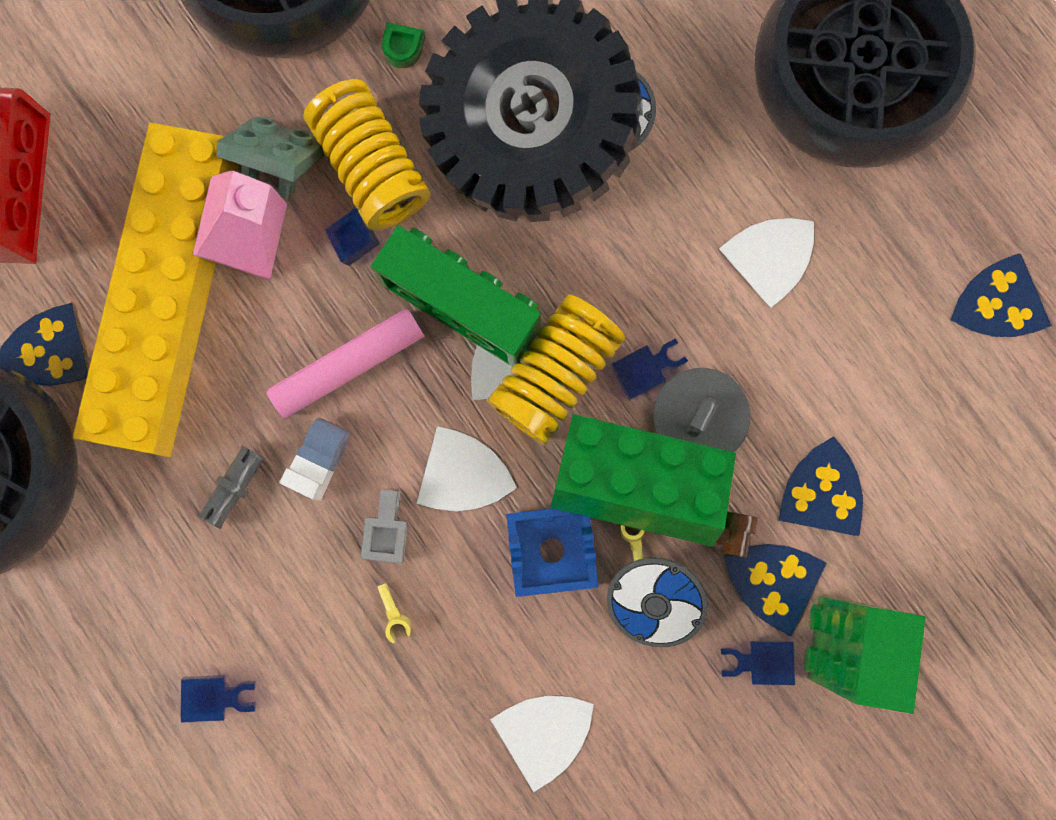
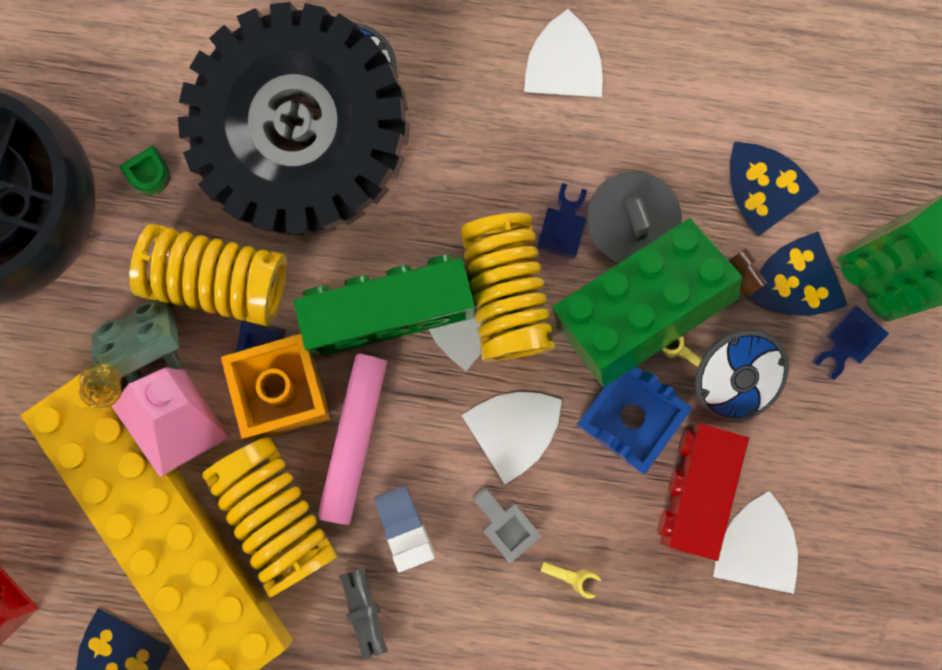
camera: 60 degrees left, 0 degrees up
(205, 147) = (88, 380): none -> clear yellow bush
(219, 363) = (260, 521): none -> yellow piece
(328, 276) = (275, 389): none -> light orange slope
(543, 651) = (703, 490): none -> red brick

